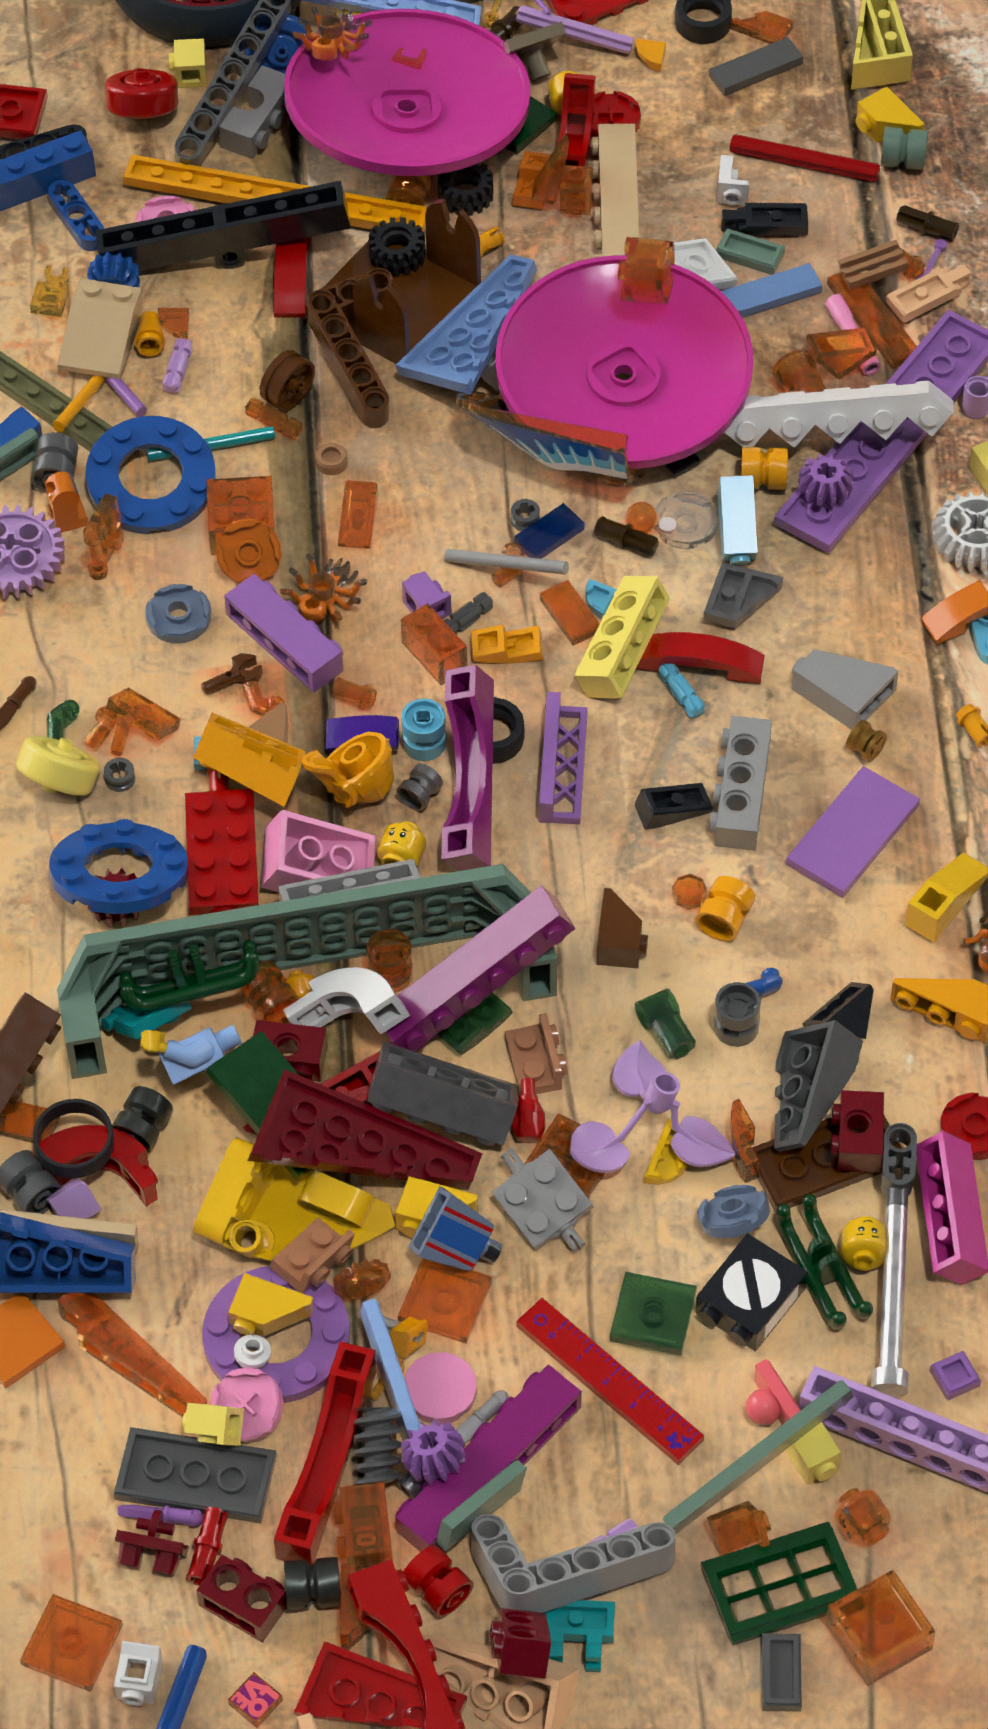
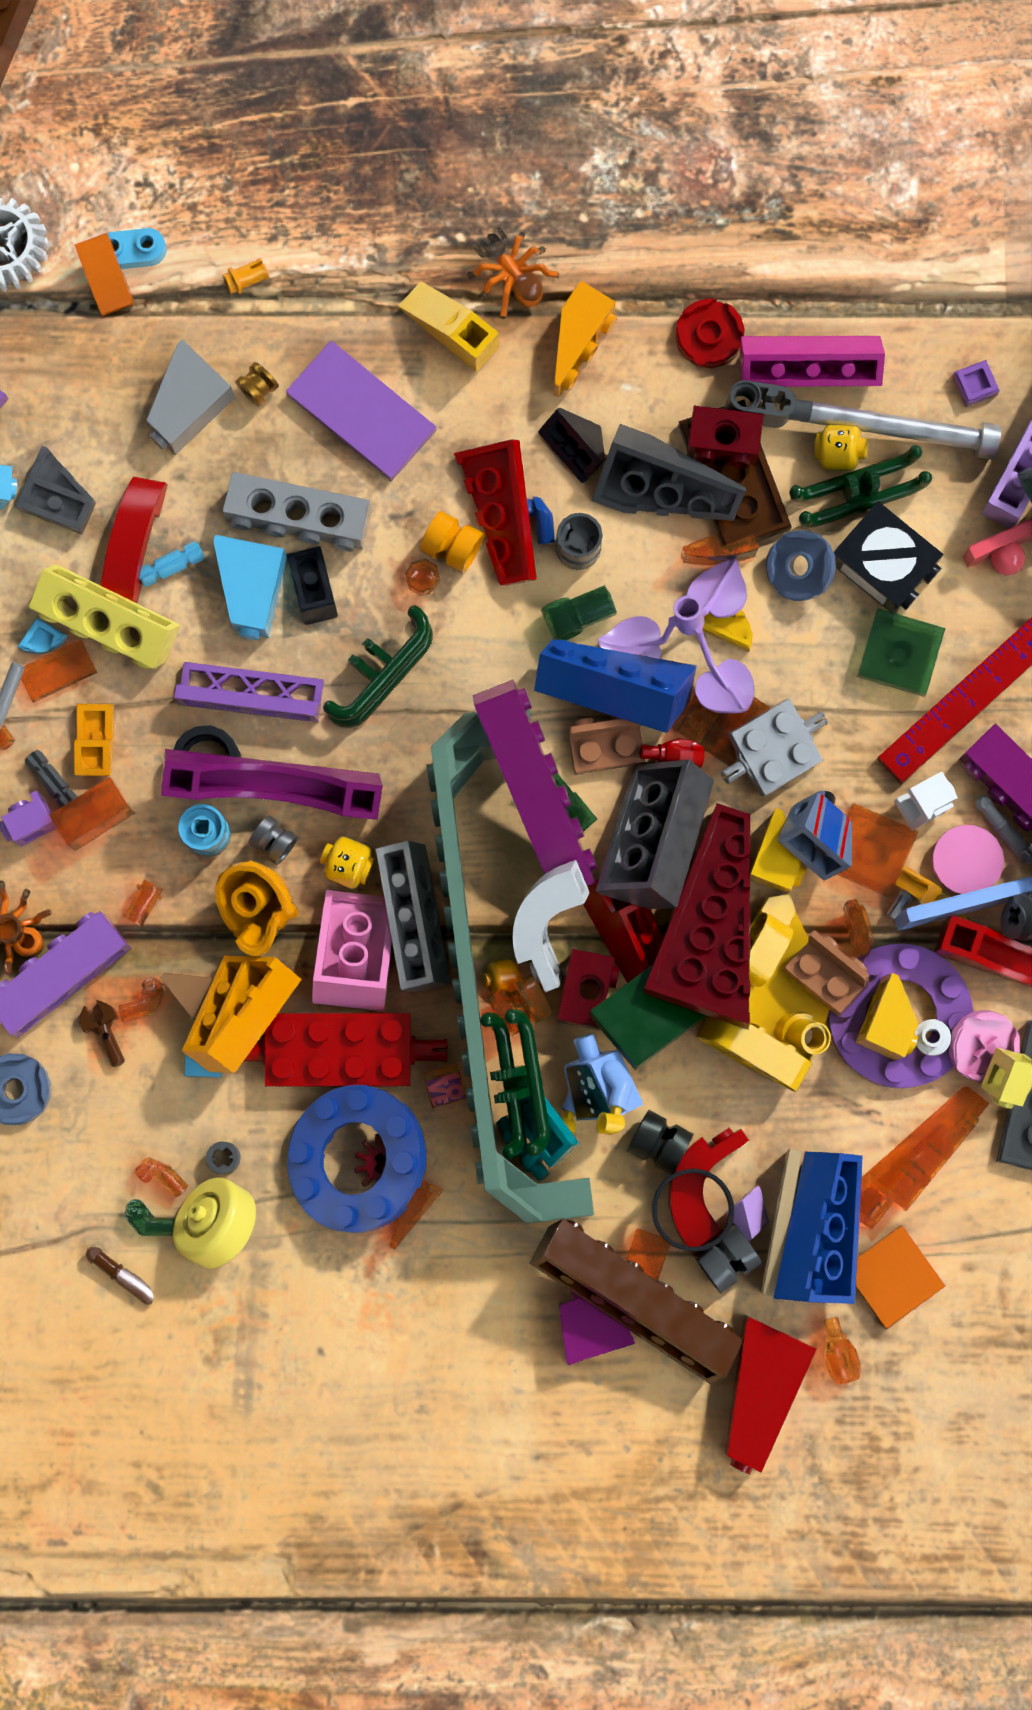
camera: 85 degrees left, 25 degrees up
(66, 920) = (417, 1207): none -> clear orange slope
(140, 712) = (152, 1132): clear orange plate -> none
(344, 728) = (198, 901): dark purple slope -> none
(391, 957) = (490, 880): clear orange wheel -> none
(498, 1338) = (926, 800): none -> white window
(589, 867) = (388, 678): none -> dark green piece
(593, 1053) = (616, 682): none -> blue wedge
(619, 934) = (469, 650): reddish brown slope -> none
(664, 749) = (251, 583): none -> medium azure slope
(761, 950) = (499, 492): none -> red wing

